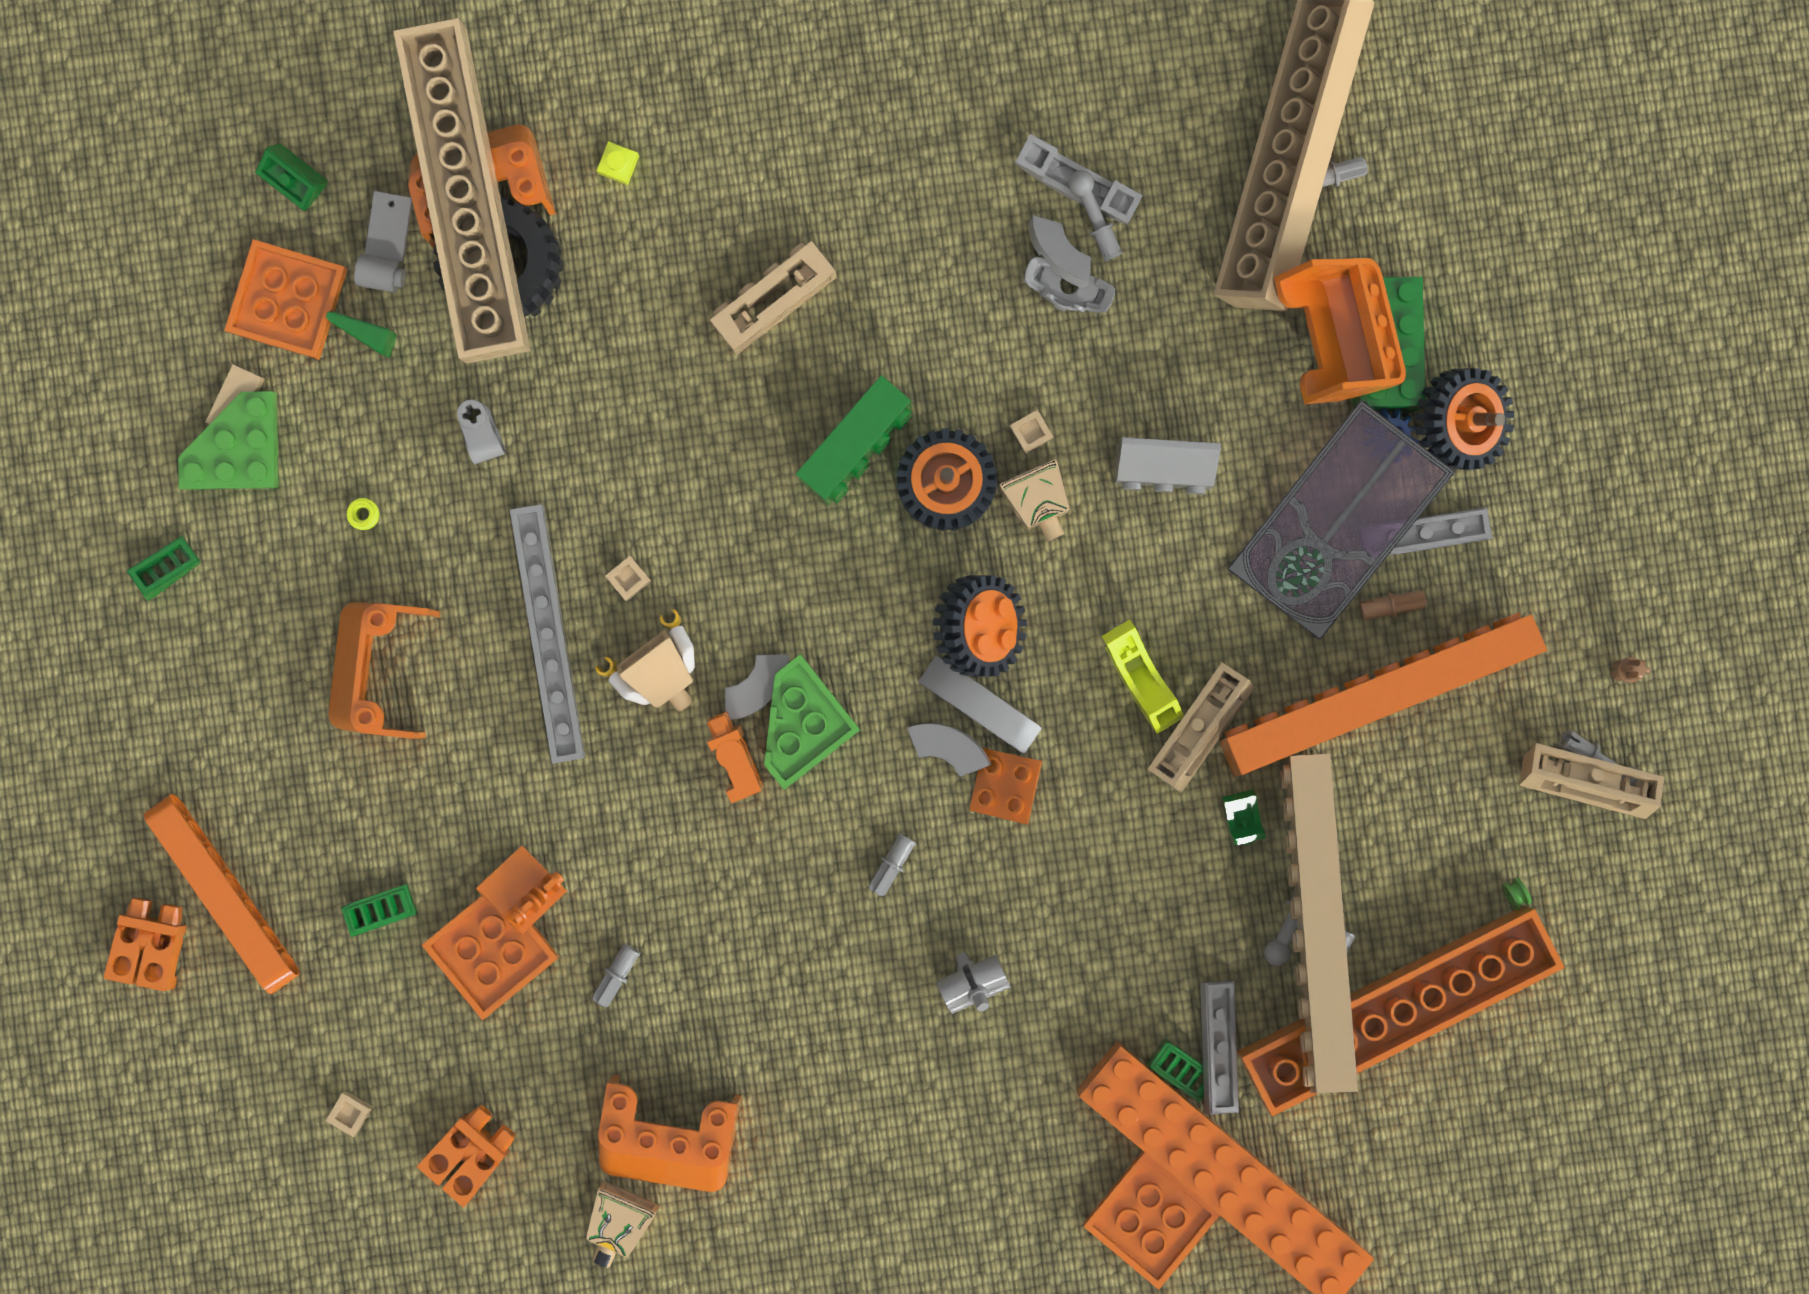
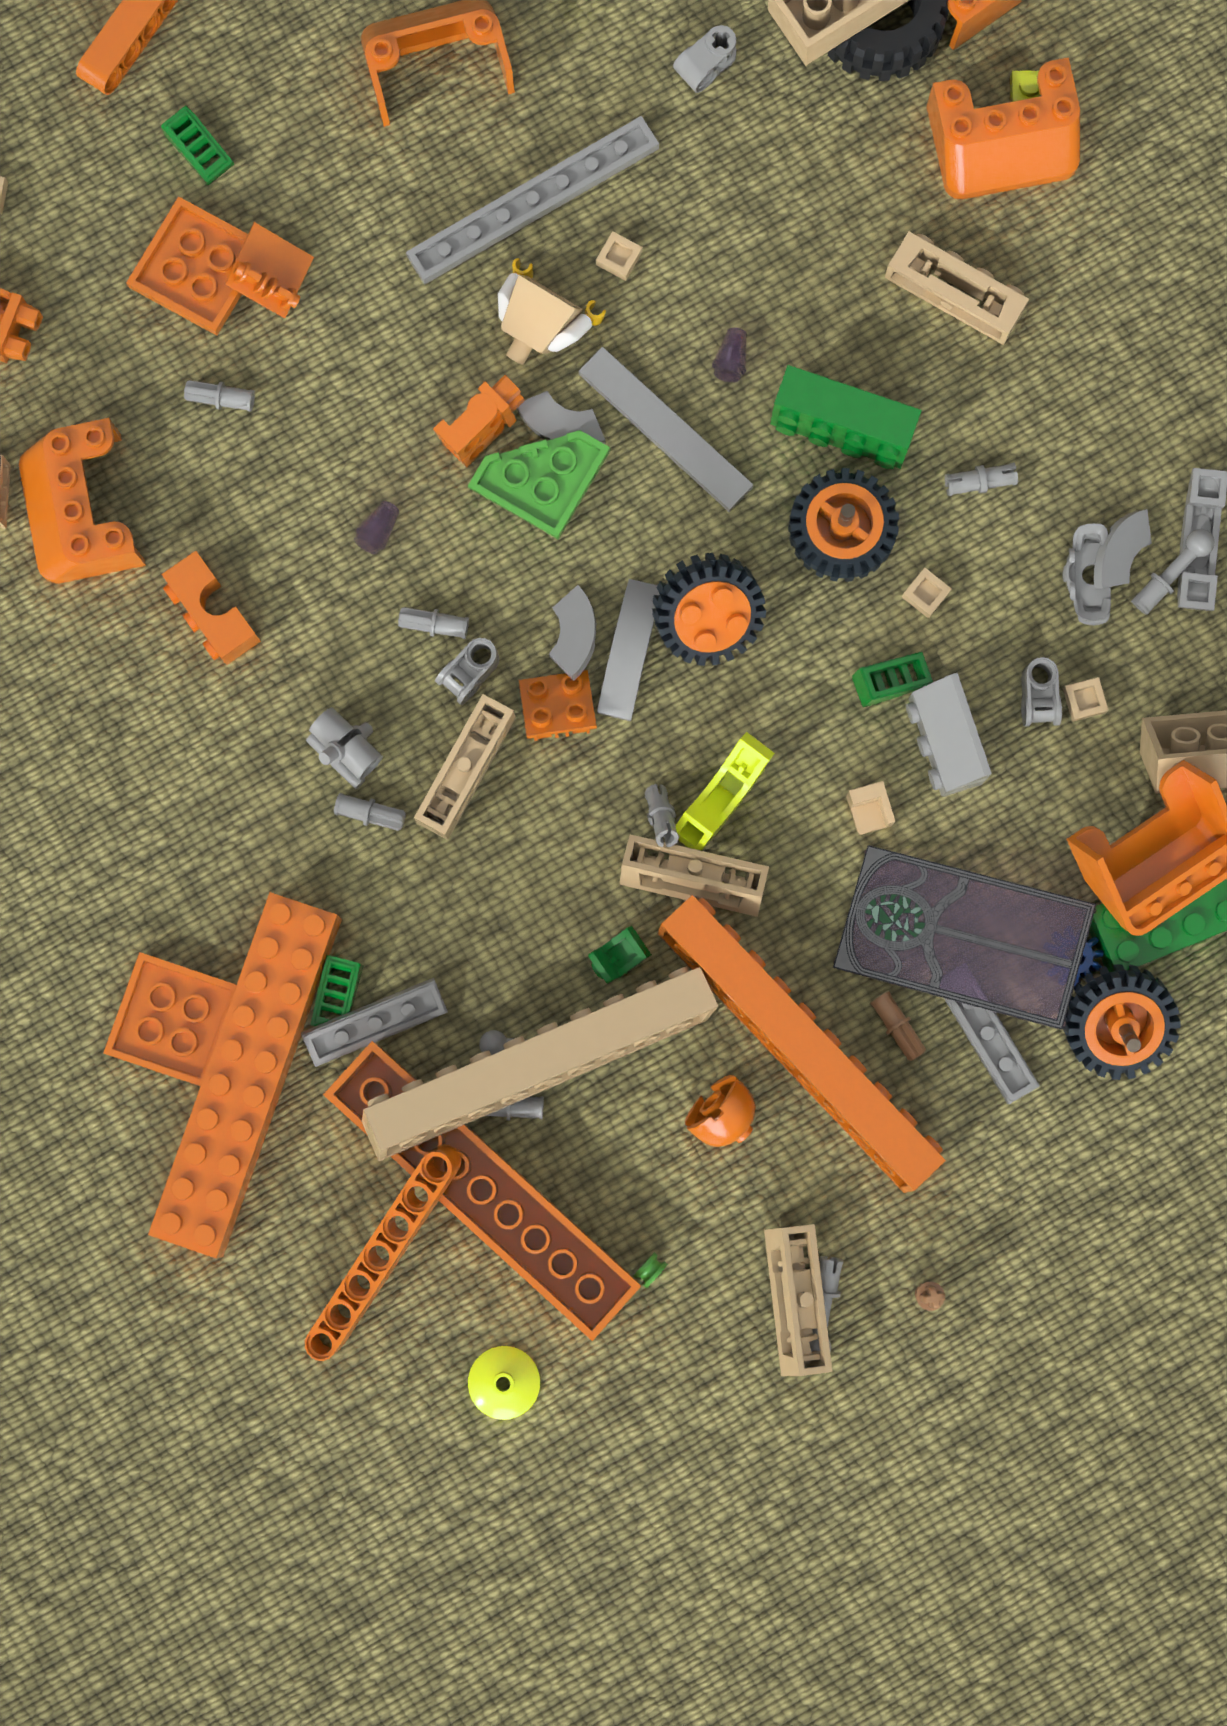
camera: 65 degrees right, 5 degrees down
(663, 200) = (1007, 142): none -> orange windscreen
(756, 516) = (731, 356): none -> cone
(778, 1064) = (192, 584): none -> orange arch
(789, 882) = (376, 529): none -> cone
(798, 598) = (665, 429): none -> light grey tile
(947, 852) = (468, 671): none -> light grey piece
(949, 345) = (981, 479): none -> light grey pin
(1033, 887) = (465, 767): none -> tan brick
(1036, 982) = (369, 812): none -> light grey axle
(1038, 499) = (862, 624): tan torso -> none
(1093, 517) = (876, 692): none -> green slope
(1140, 735) = (661, 815): none -> light grey pin
(1158, 371) = (1041, 696): none -> light grey piece
(1175, 335) = (1085, 699): none -> tan plate
(1198, 554) = (870, 808): none -> tan panel
(1413, 783) = (724, 1115): none -> orange cylinder
(1417, 1104) = (370, 1264): none -> orange beam
(1545, 1049) = (508, 1363): none -> neon yellow dish

